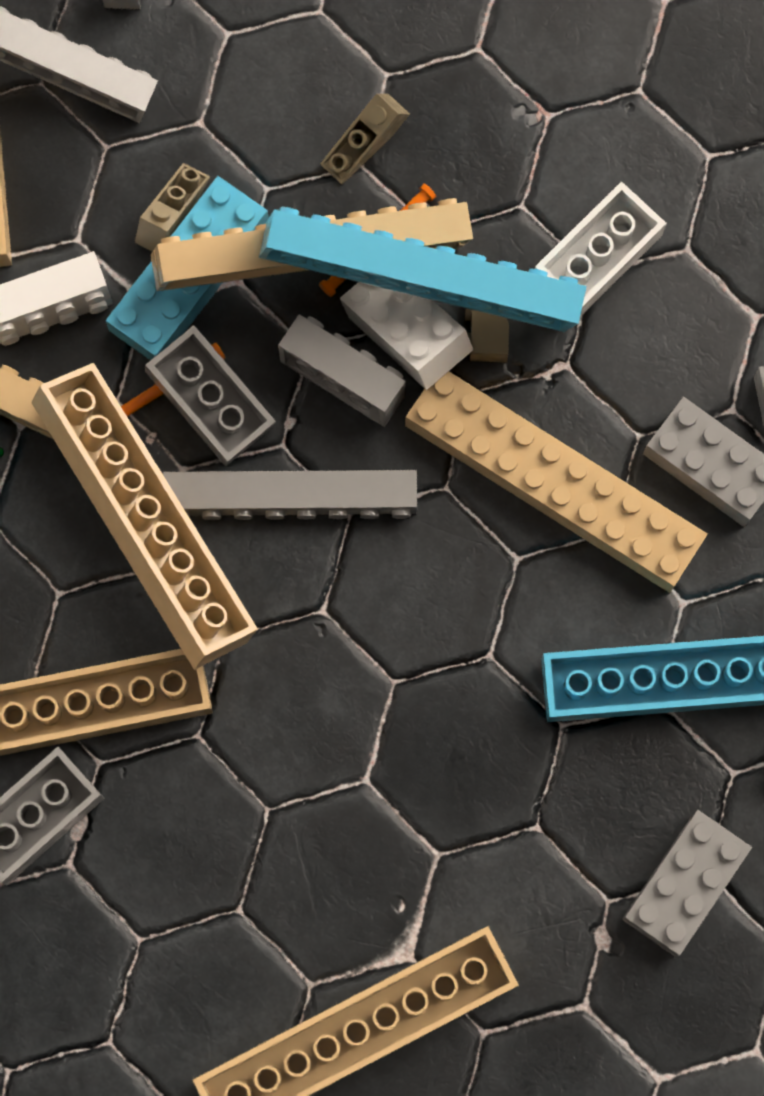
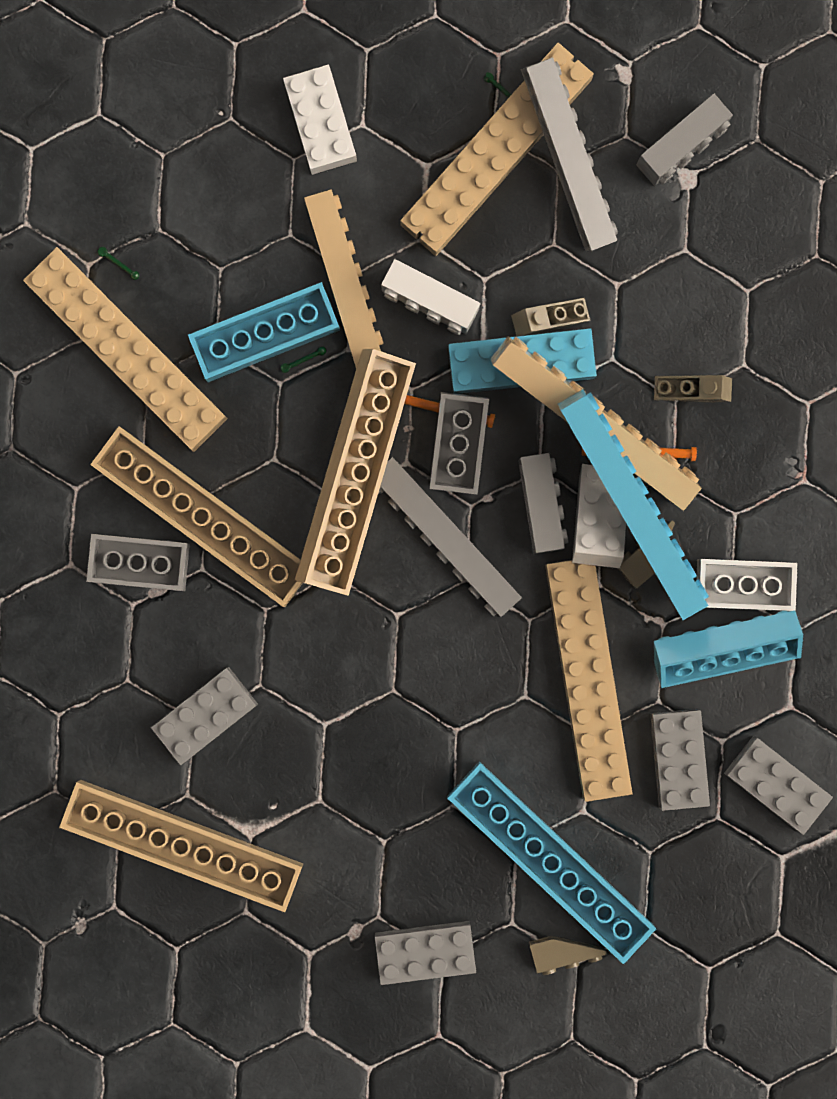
camera: 45 degrees right, 10 degrees up
(246, 890) = (204, 716): none -> light grey brick
(646, 319) = (728, 648): none -> medium azure brick

